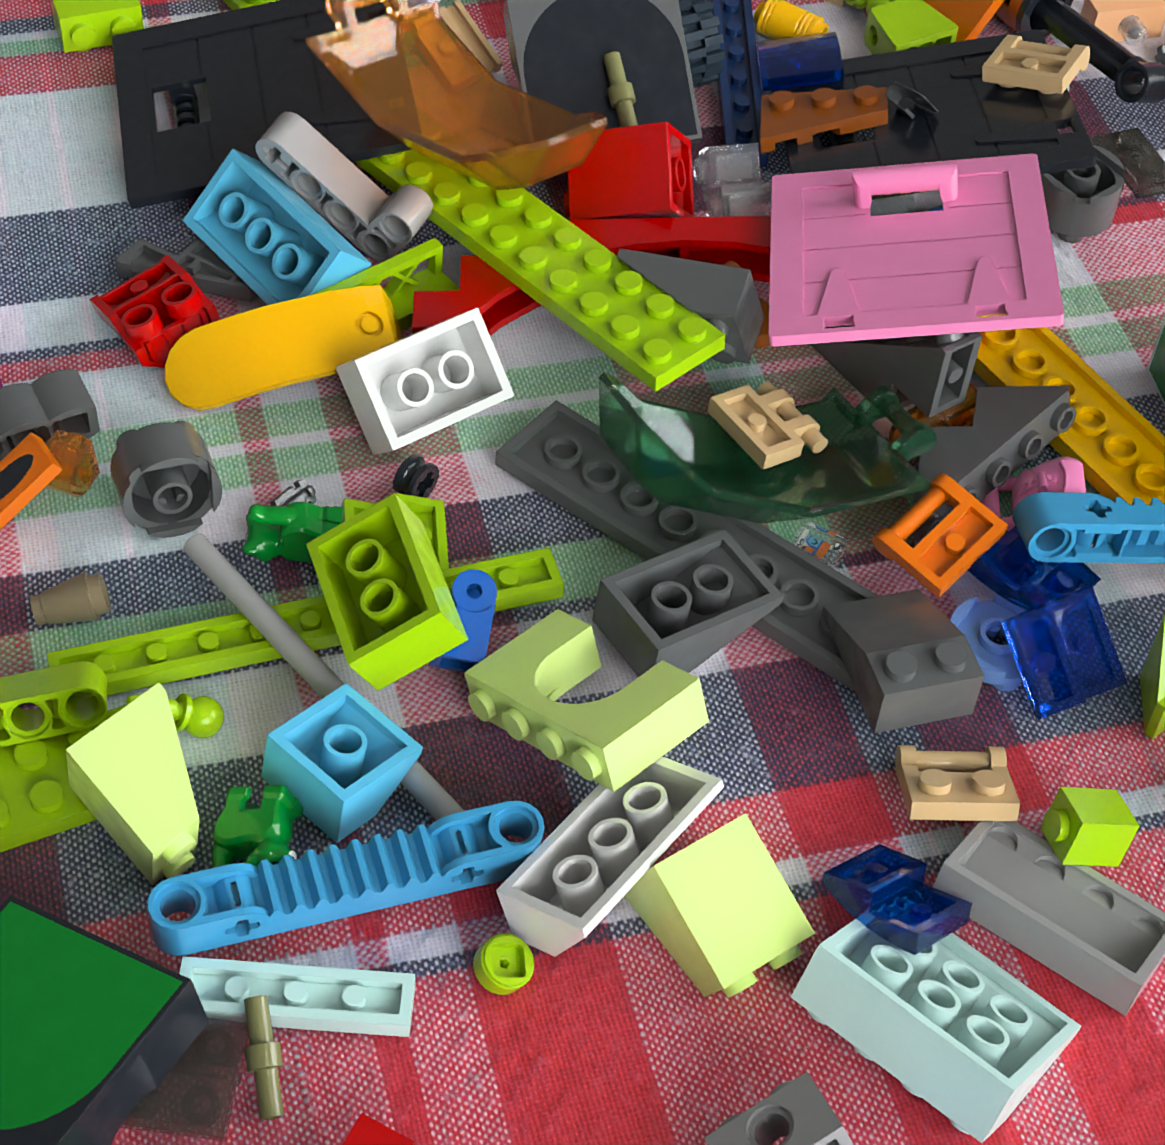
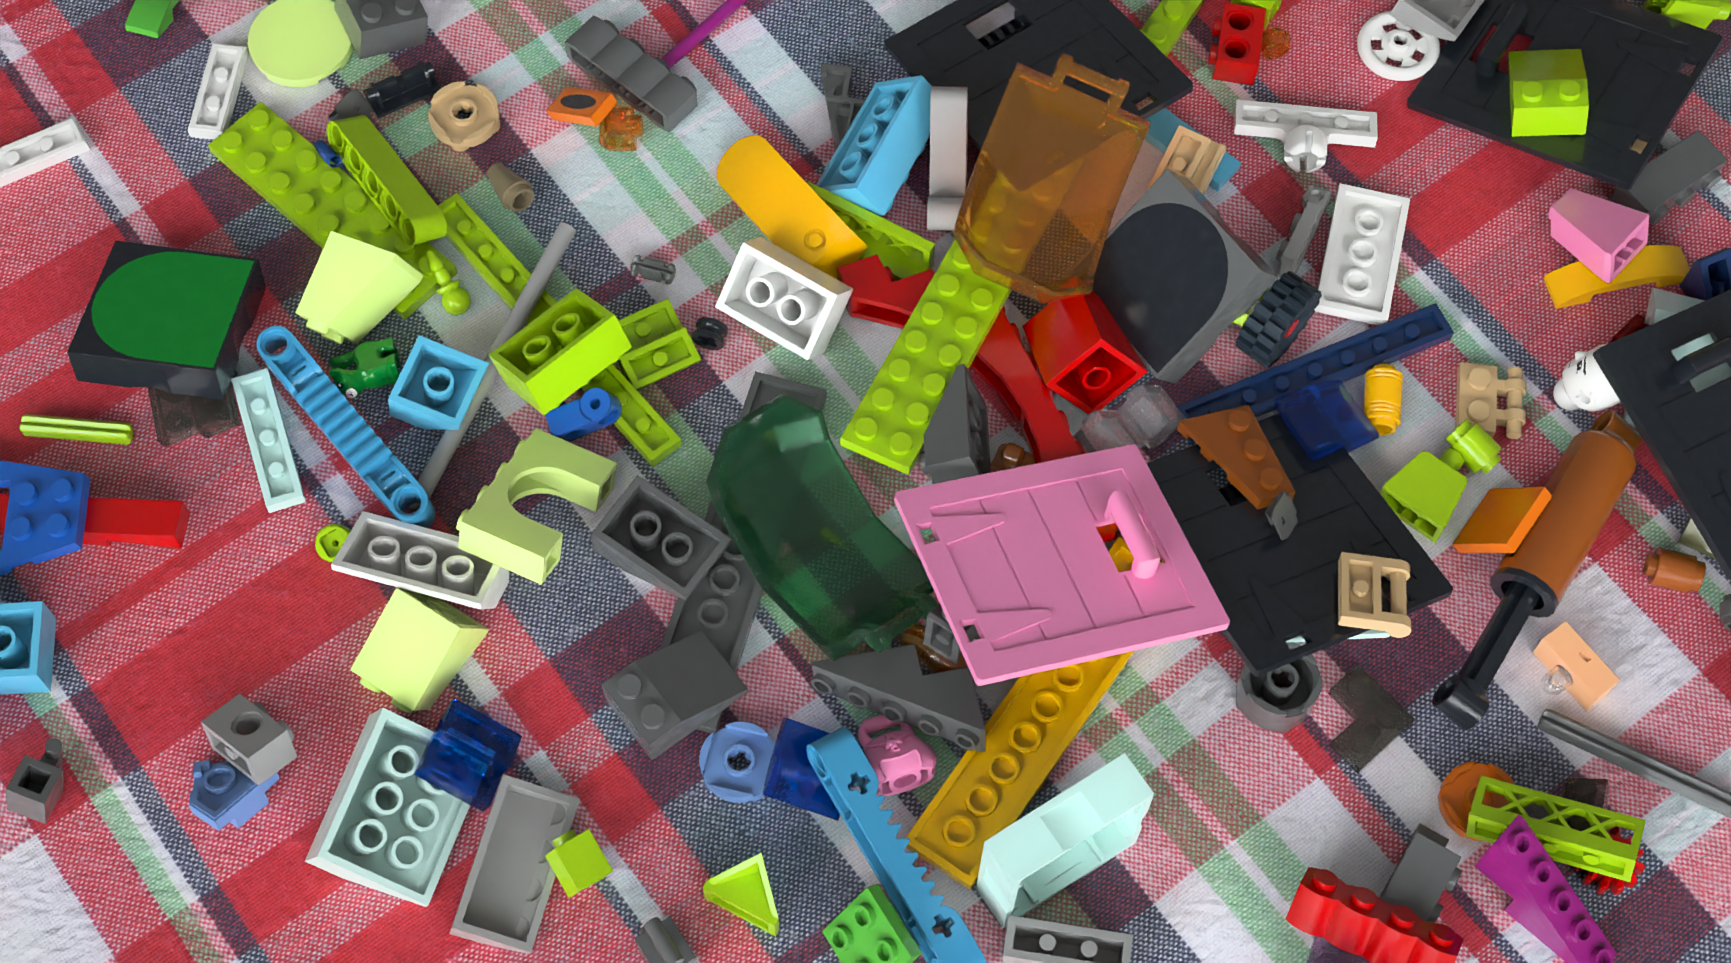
camera: 70 degrees right, 15 degrees up
(155, 310) = (782, 110): red slope -> none
(165, 478) = (622, 186): dark grey brick -> none
(263, 1057) = (217, 440): olive bar -> none
(298, 526) = (614, 281): green animal -> none
(620, 91) = (1141, 299): olive bar -> none
(766, 424) = (854, 530): tan plate -> none
(821, 543) = (772, 619): clear tile -> none
(949, 546) = (794, 696): orange plate -> none
(956, 784) = (577, 771): tan plate -> none
(1064, 652) = (732, 805): clear blue slope -> none

